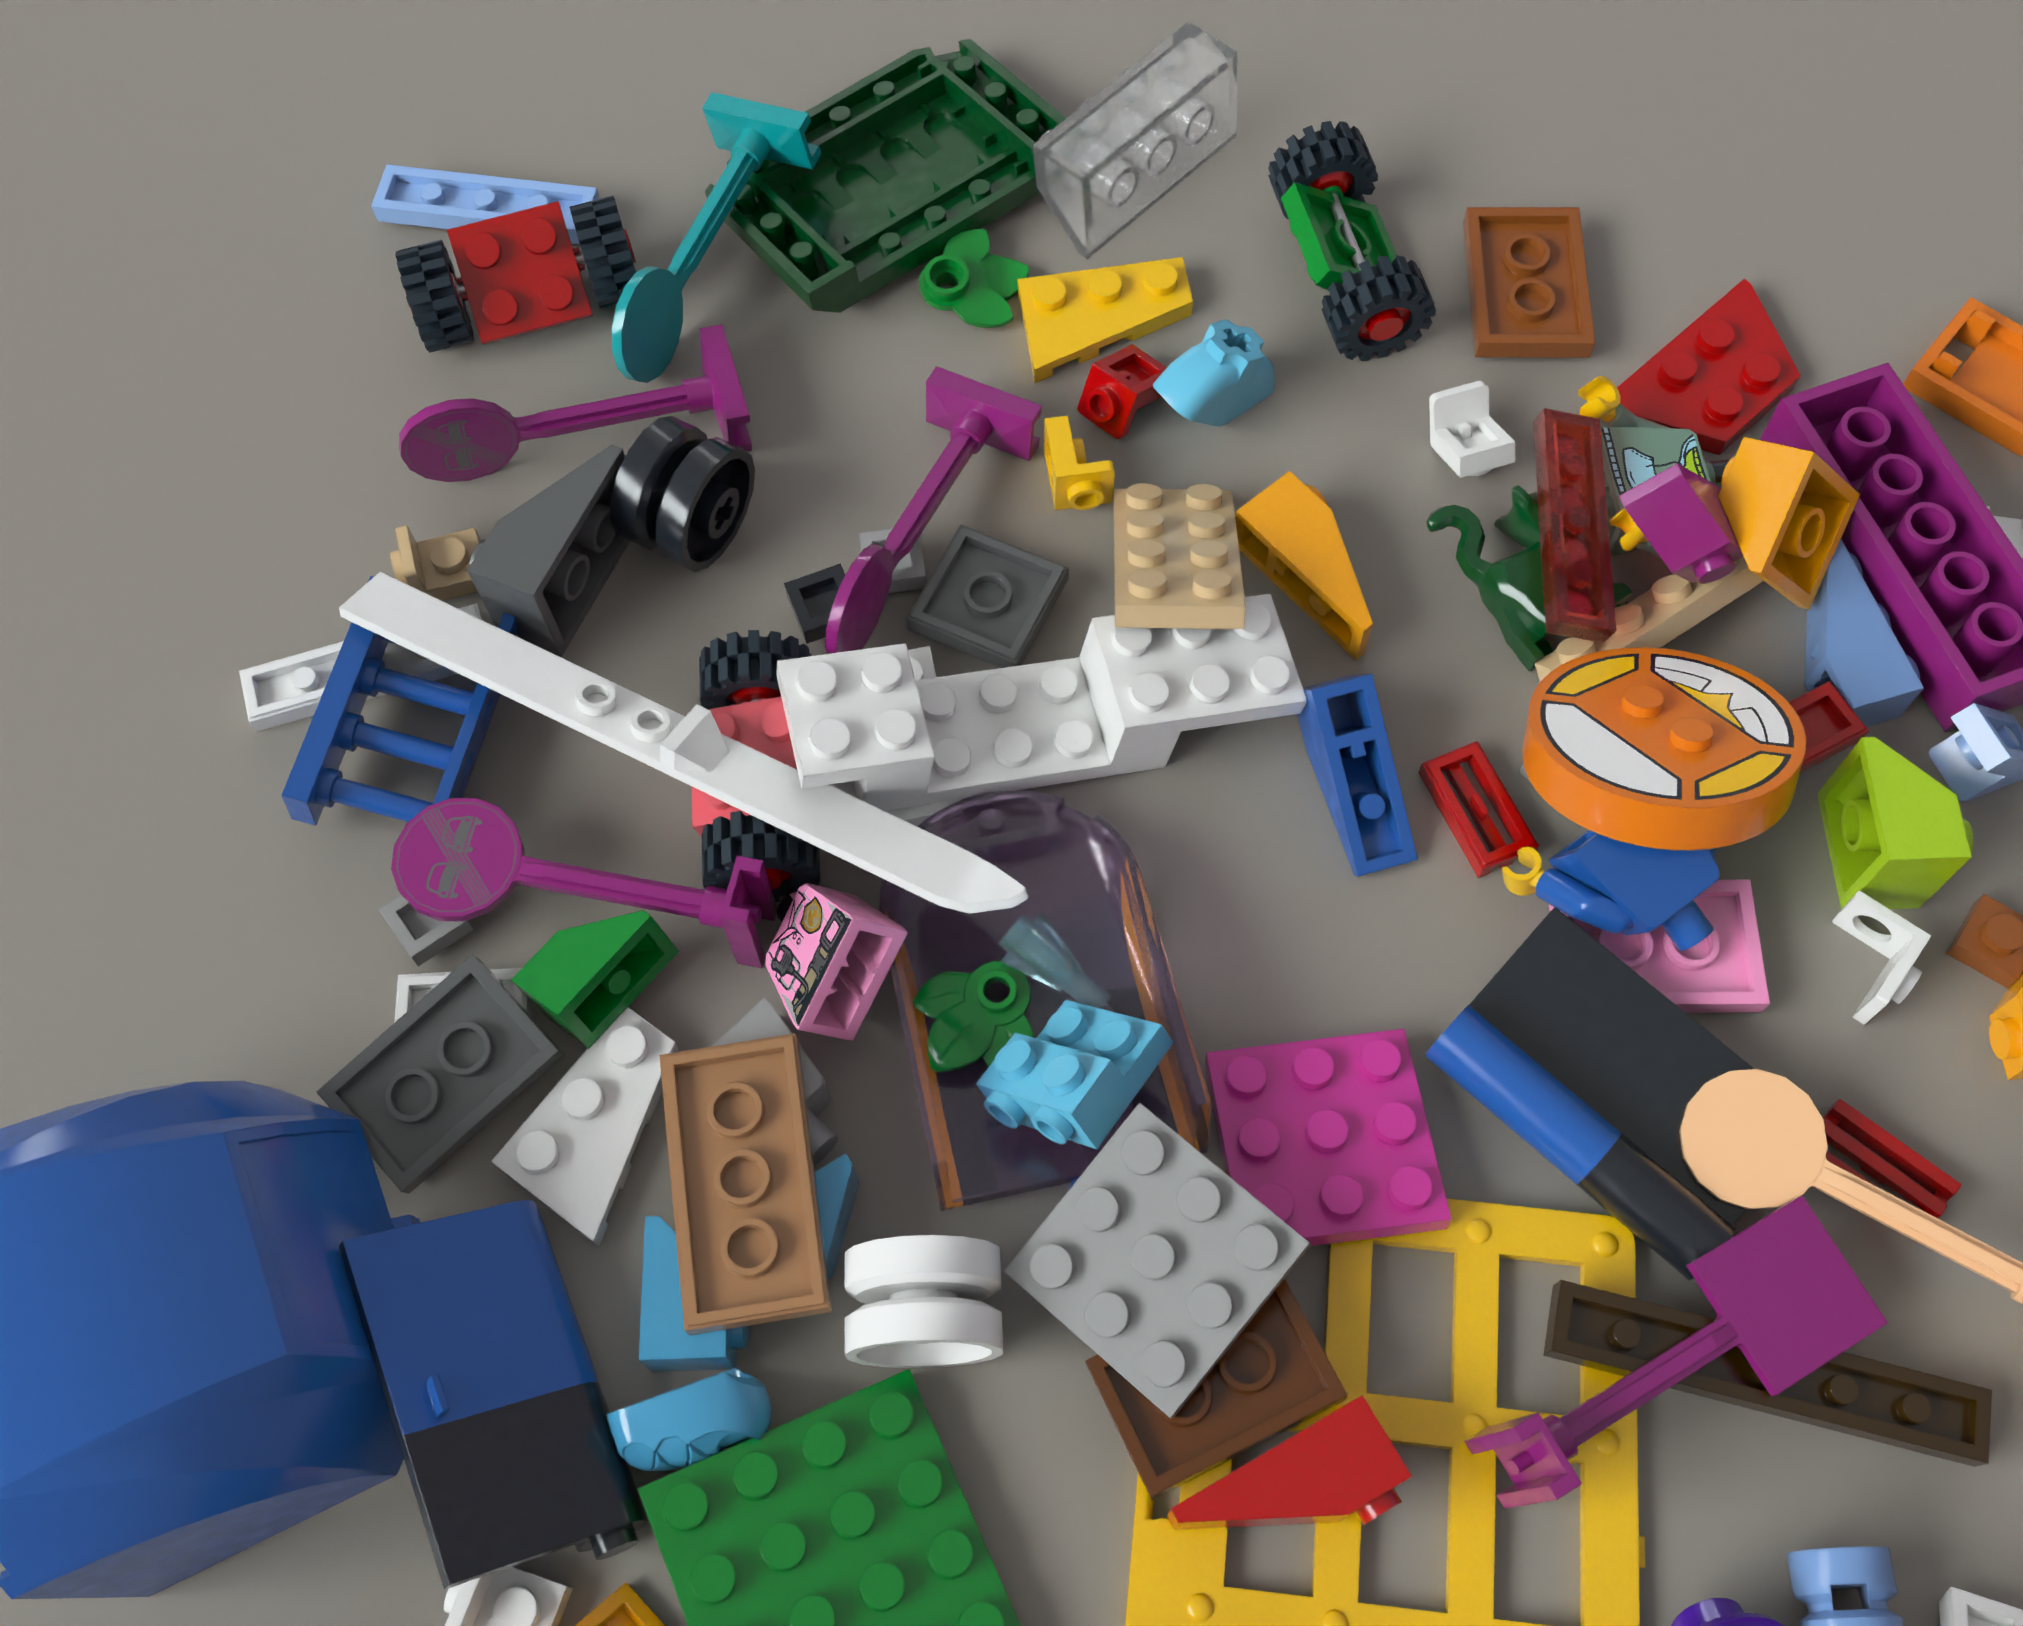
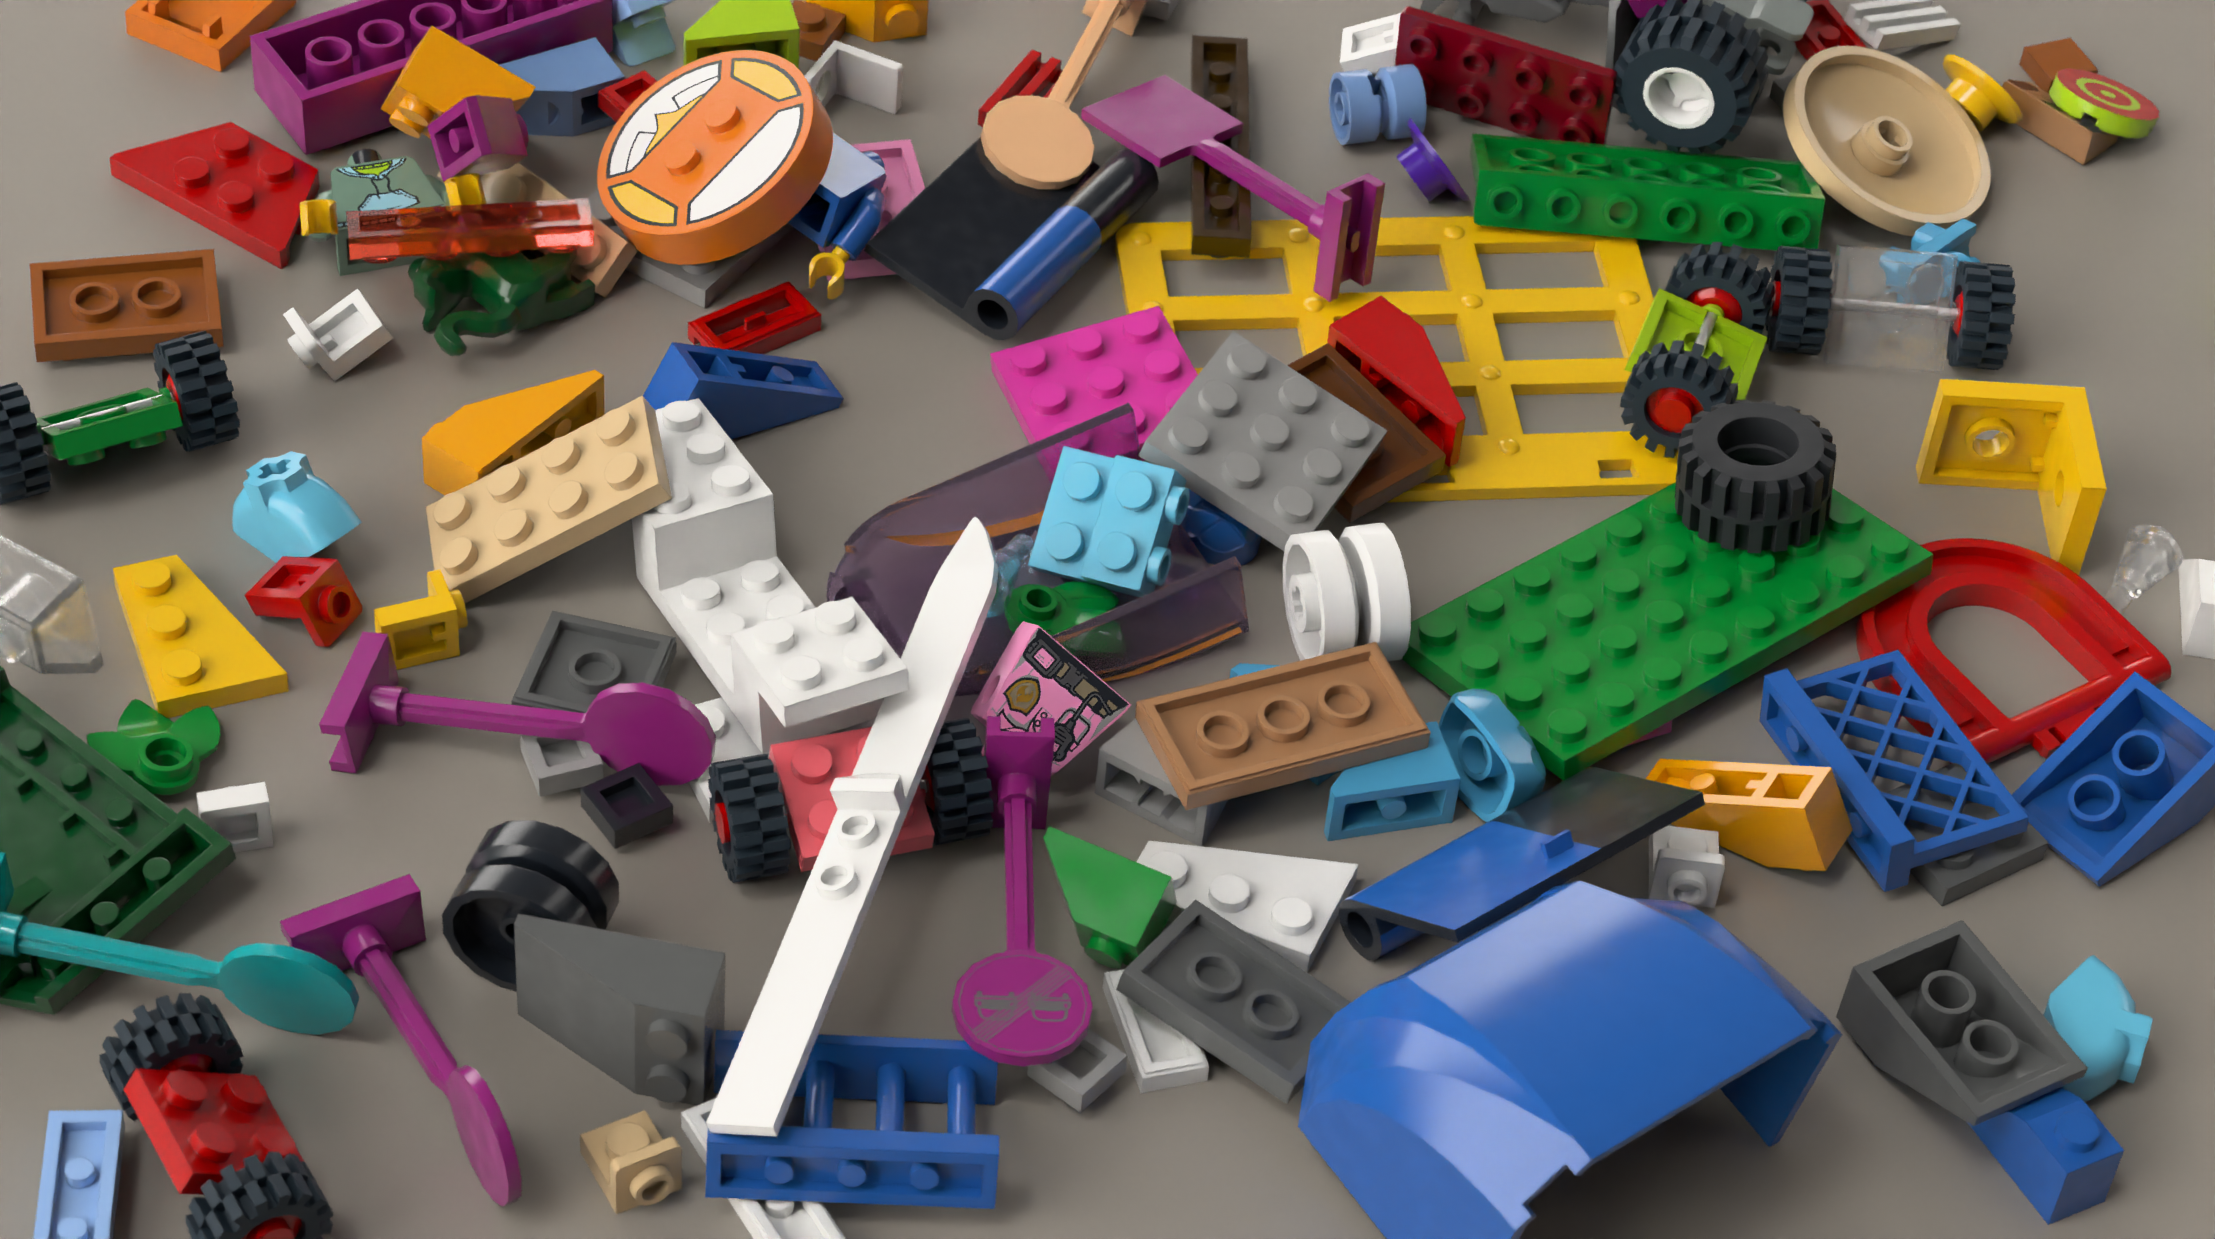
camera: 110 degrees left, 20 degrees down
(870, 319) = (239, 815): none -> white plate

